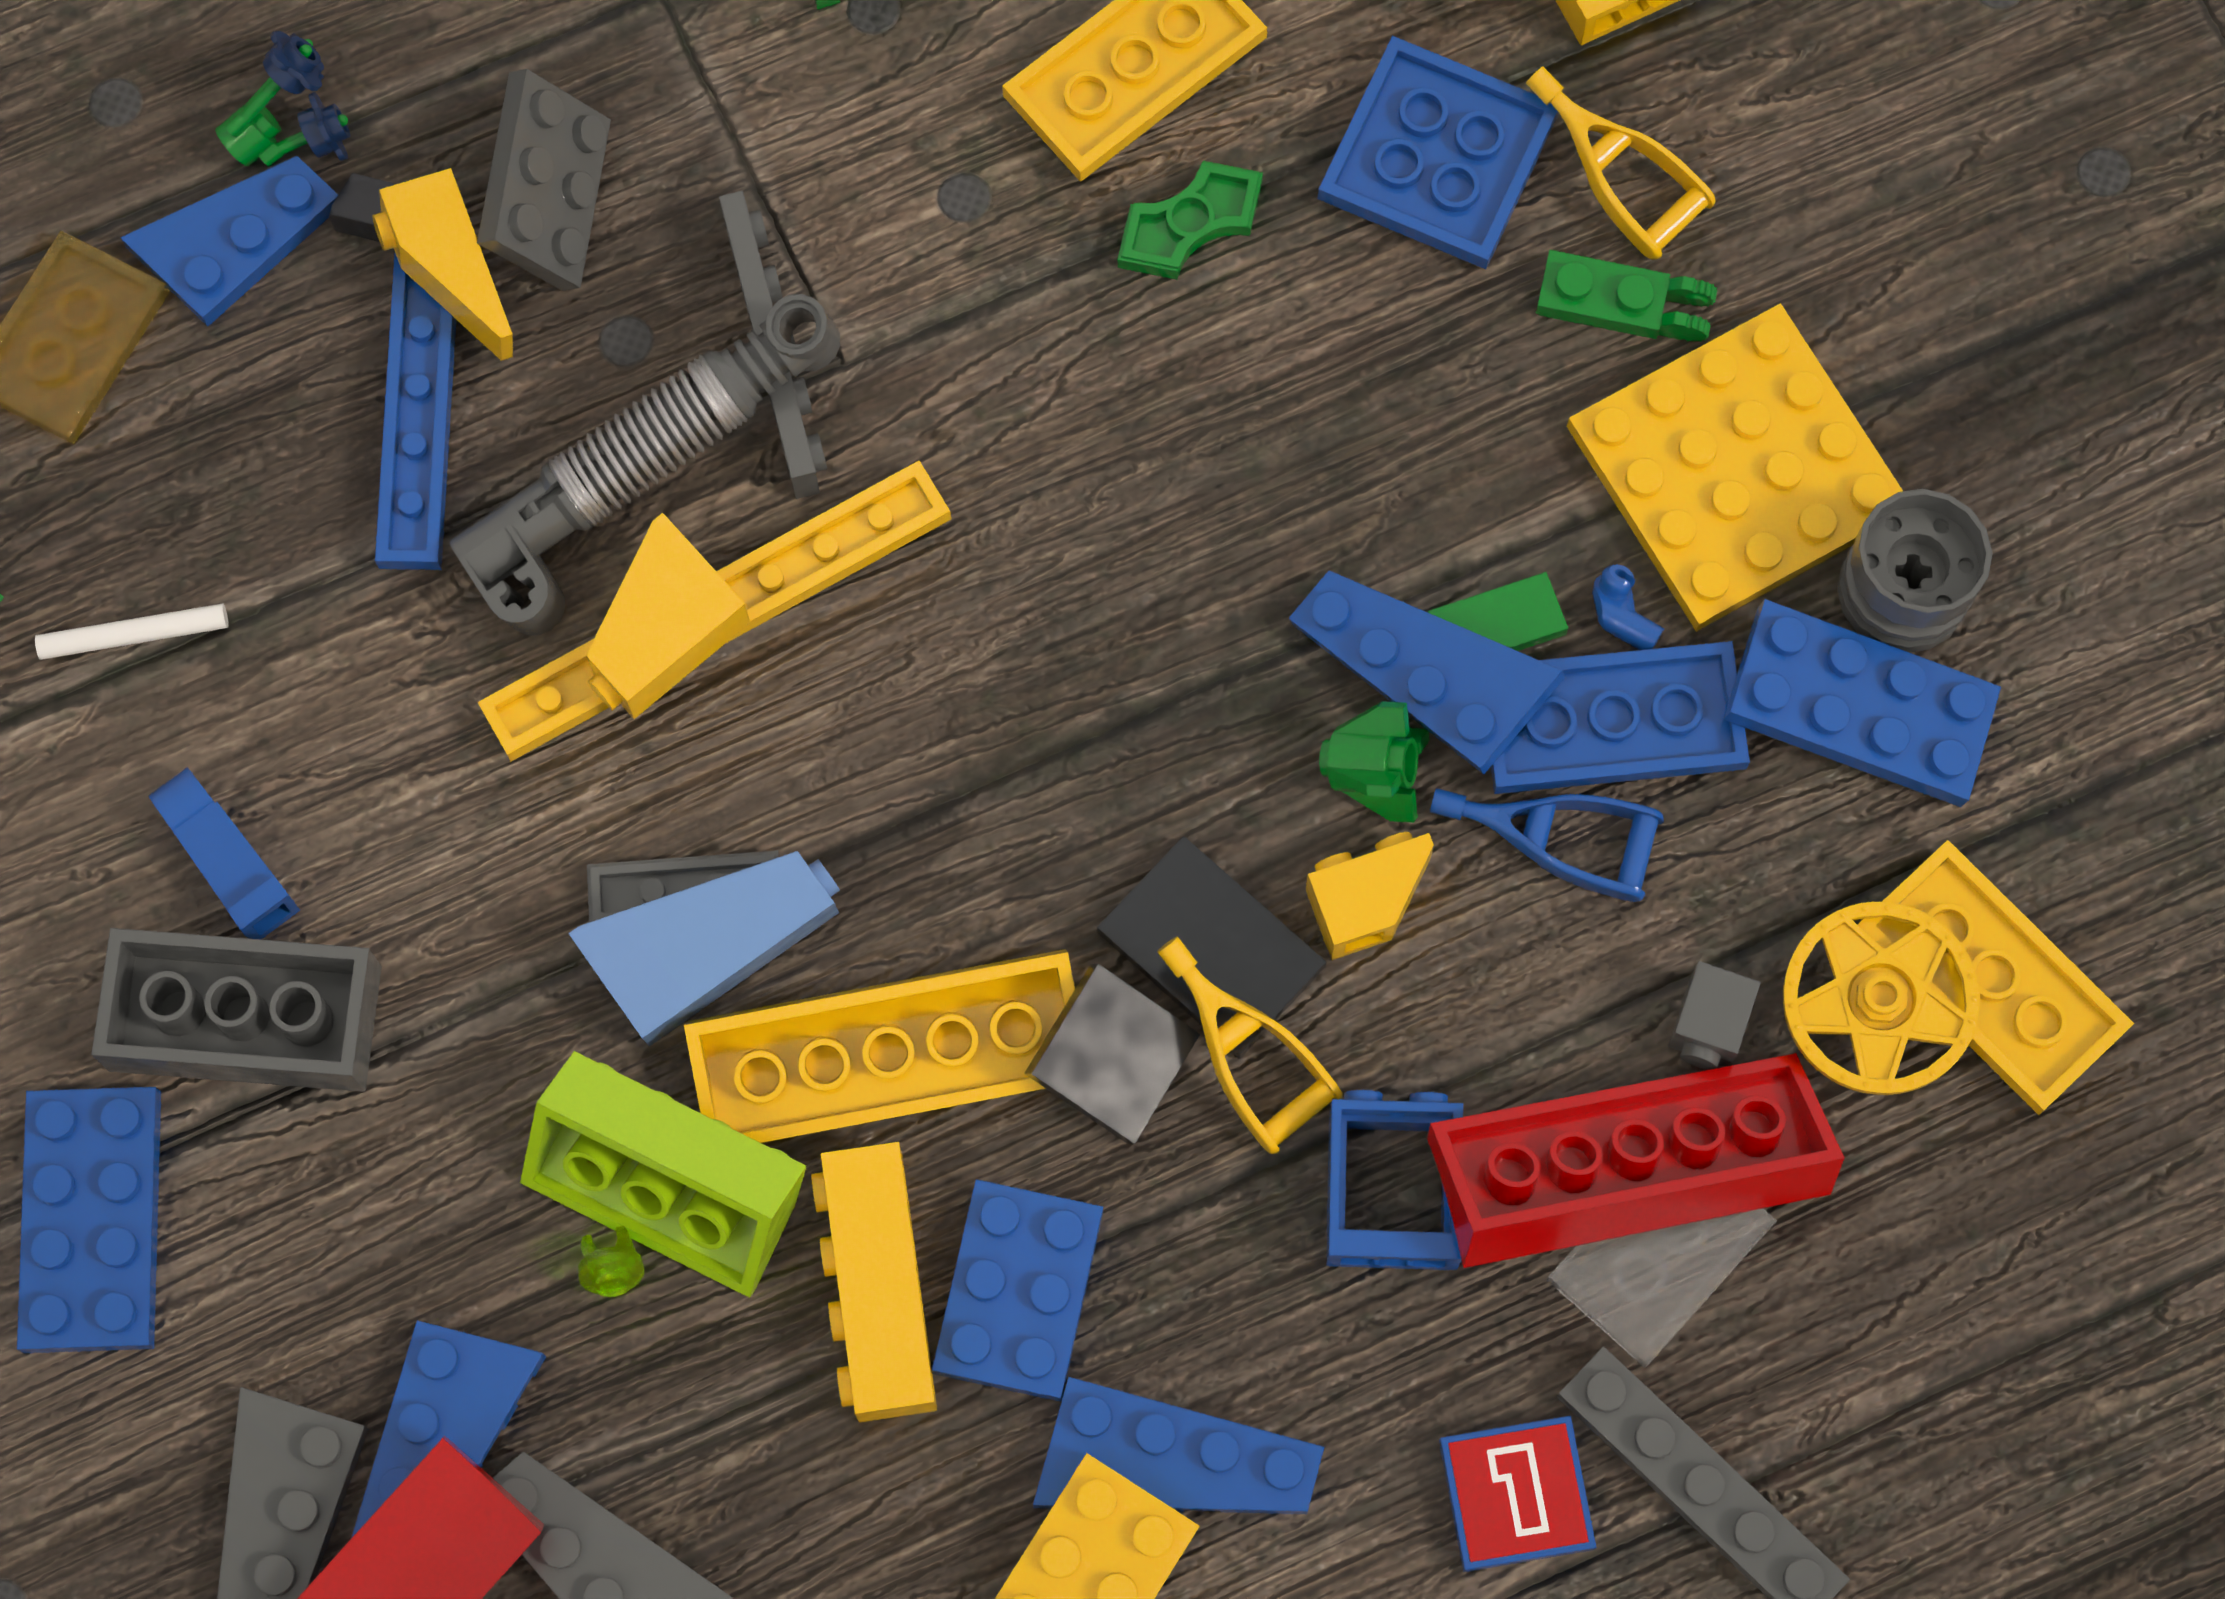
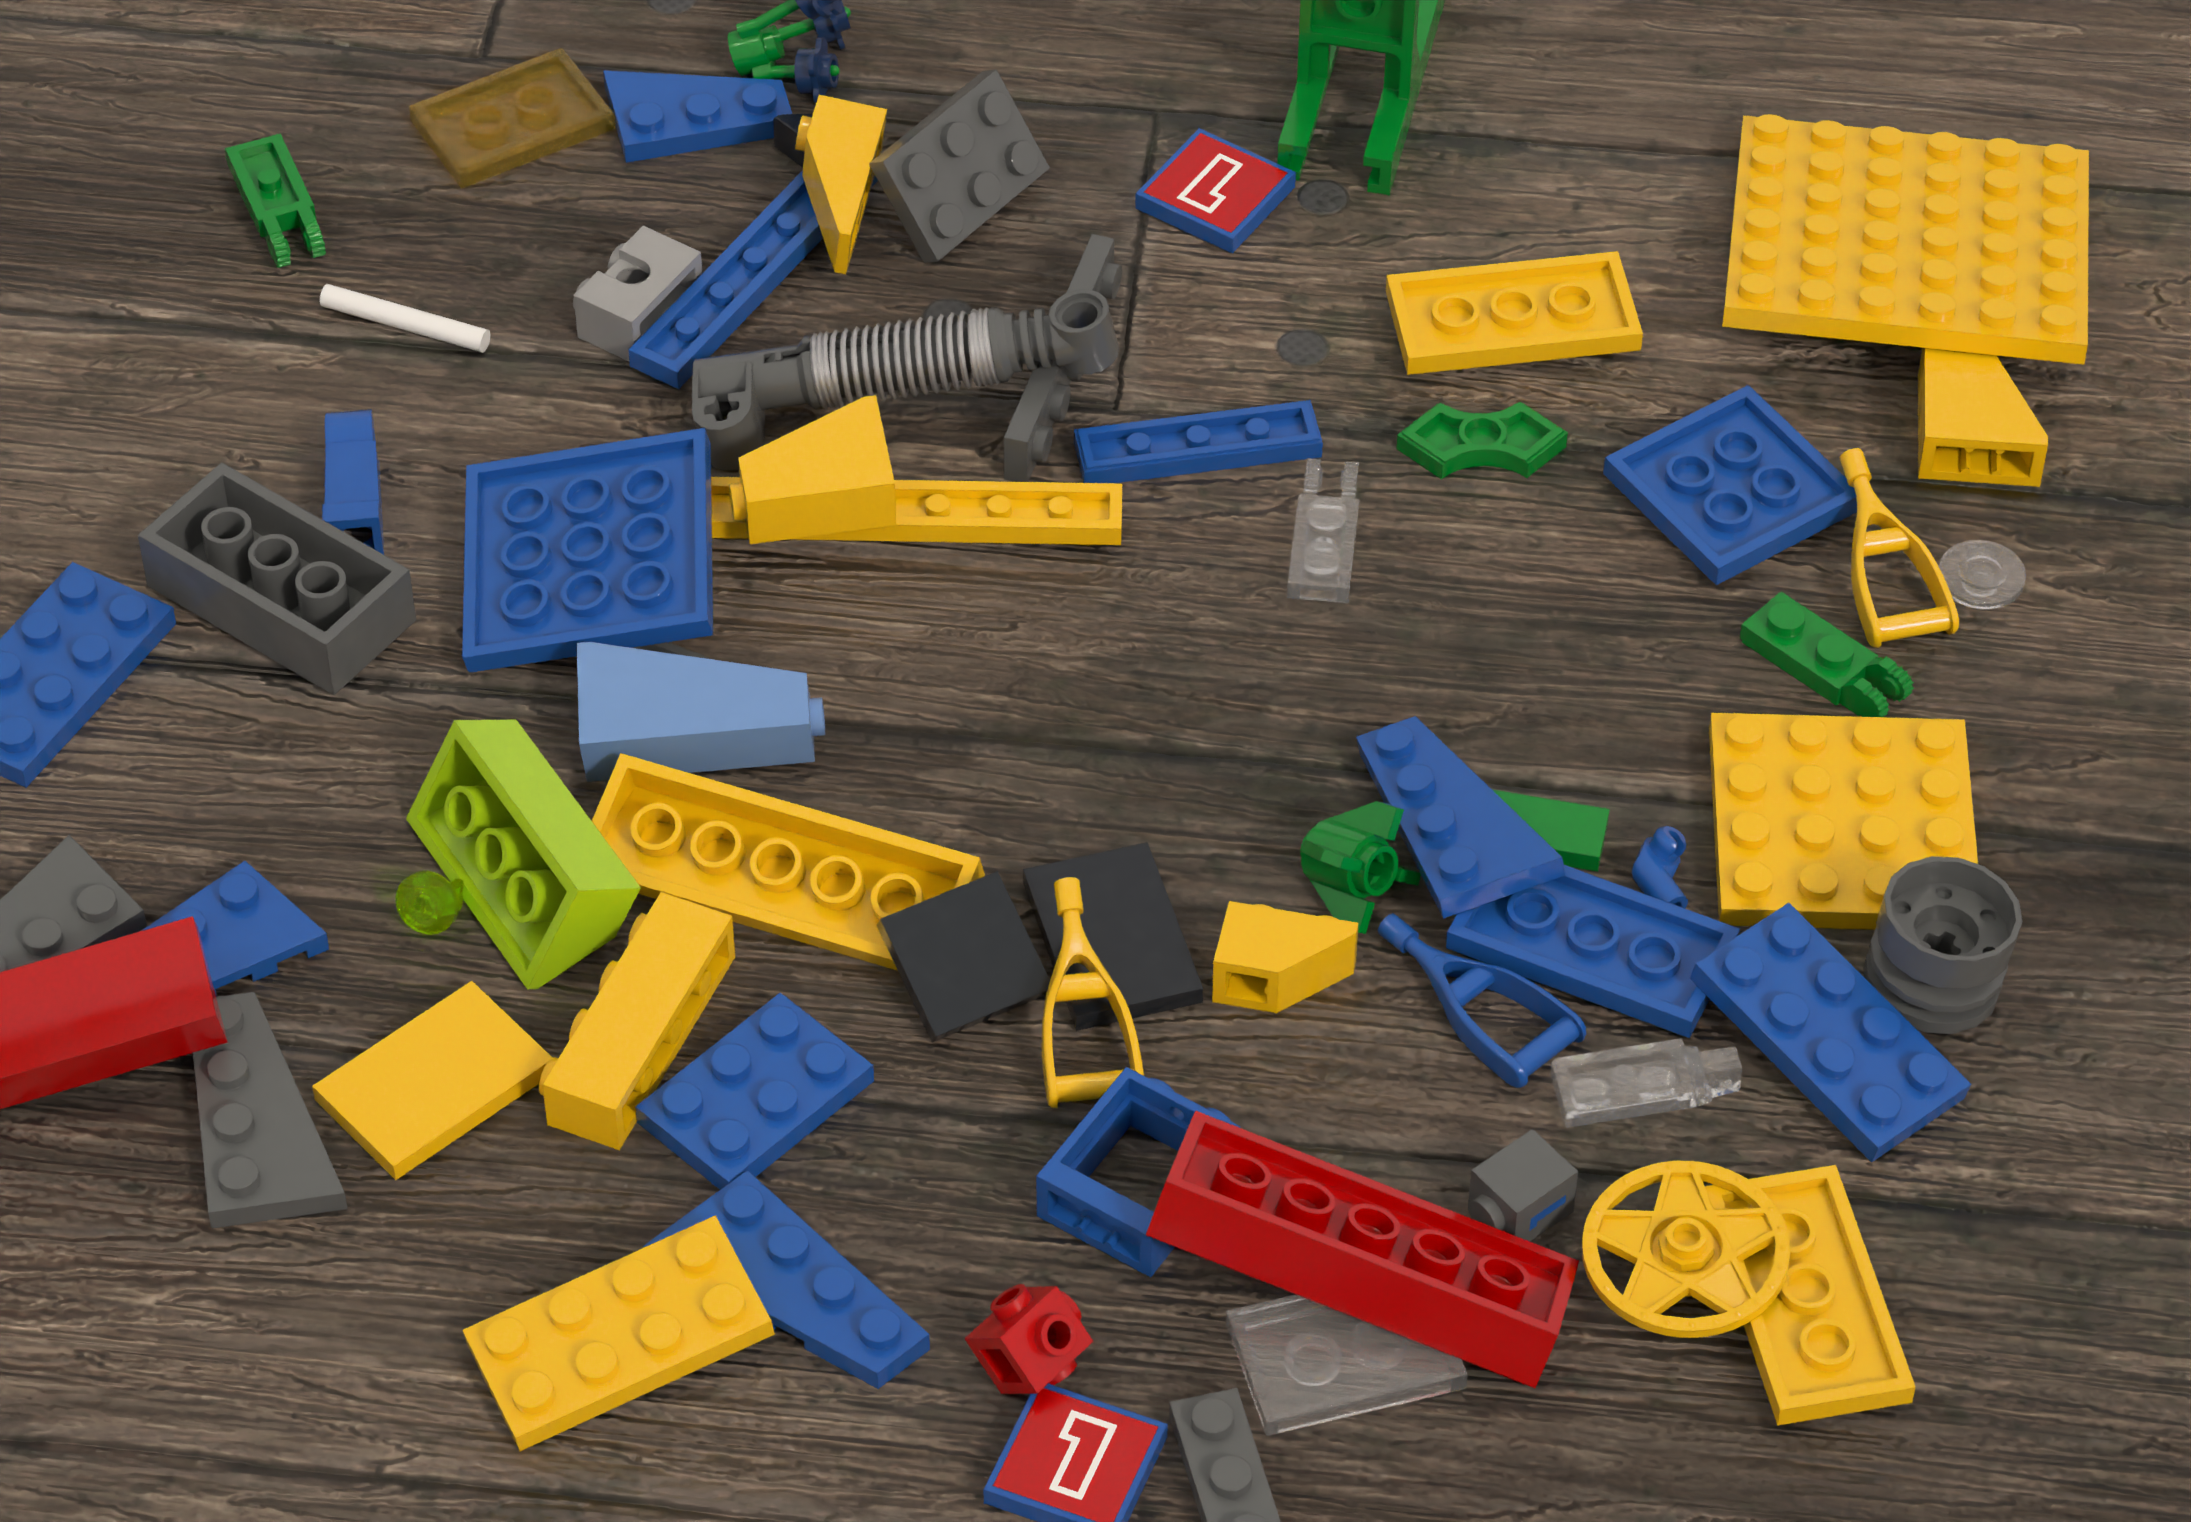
camera: 30 degrees right, 25 degrees down
(346, 521) = (634, 291): none -> light grey brick
(498, 815) = (588, 550): none -> blue plate
(737, 1441) = (432, 1080): none -> yellow tile
(777, 61) = (1215, 190): none -> tile
(944, 365) = (1198, 443): none -> blue tile
(1122, 408) = (1324, 537): none -> clear hinge
(1417, 1409) = (1029, 1339): none -> red brick
(1702, 130) = (1983, 574): none -> clear piece
(1737, 844) = (1642, 1080): none -> clear hinge

